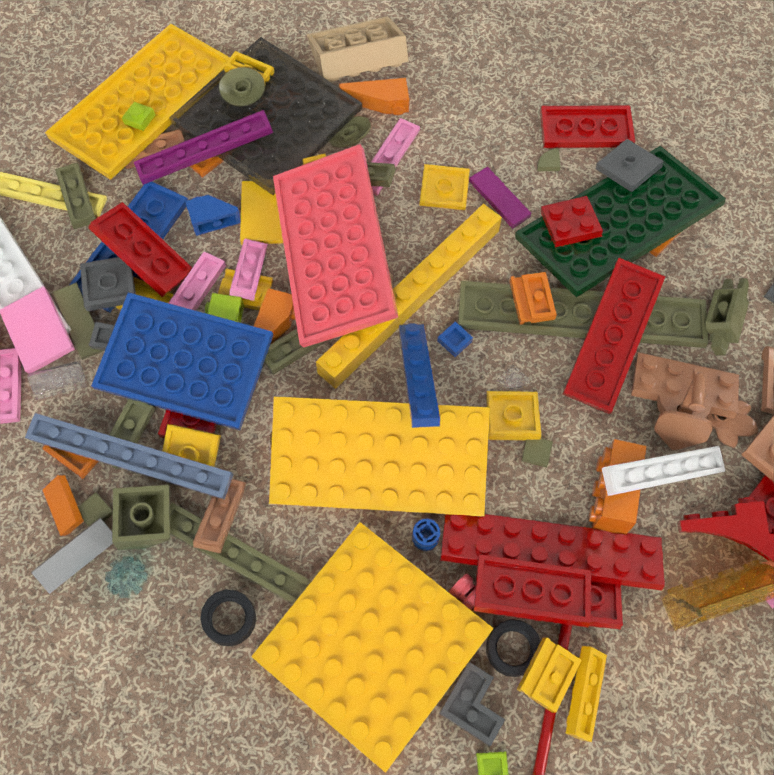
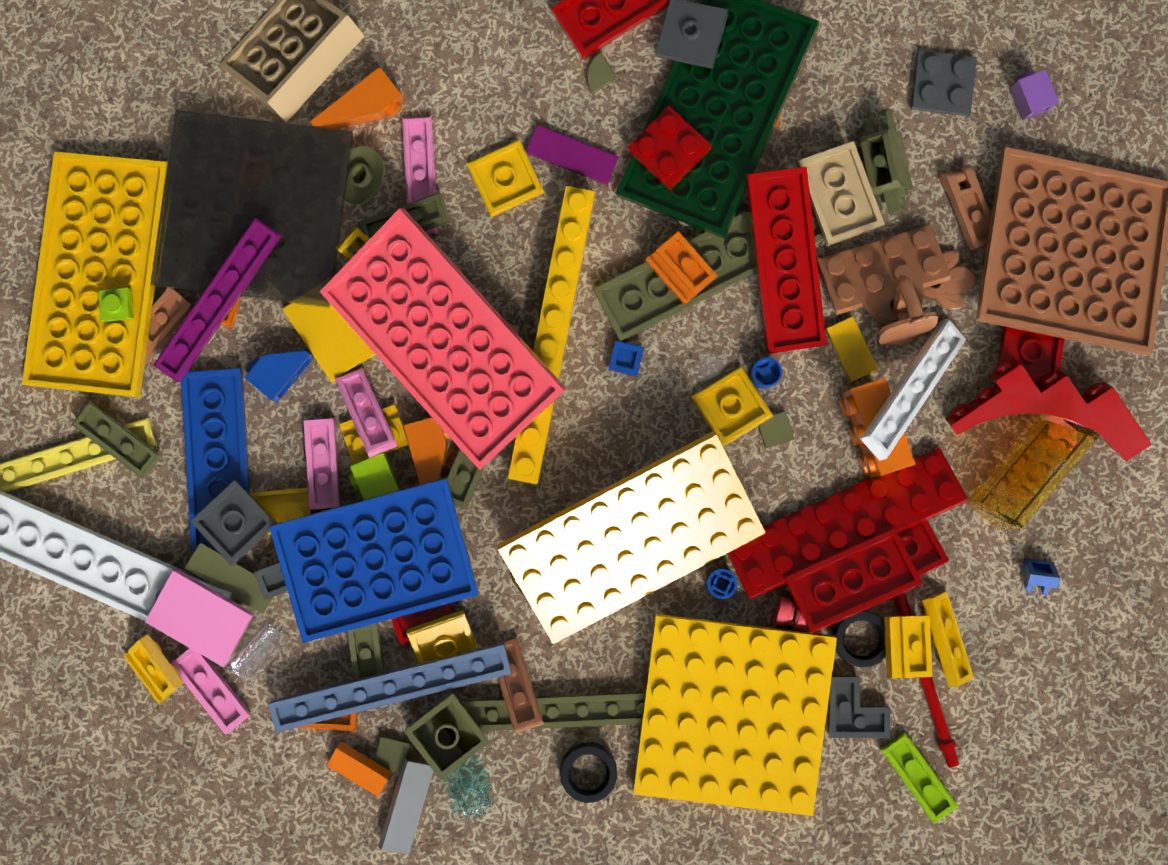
camera: 30 degrees left, 20 degrees up
(141, 248) = (242, 465): red plate -> none
(241, 86) = (196, 191): olive dish -> none
(249, 63) = (200, 177): yellow tile -> none
(418, 376) = (621, 434): blue plate -> none
(555, 400) = (765, 373): none -> blue wheel
(630, 422) = (851, 349): none -> yellow tile
(681, 314) = (841, 194): none -> tan plate
(696, 687) = (1040, 574): none -> blue tile

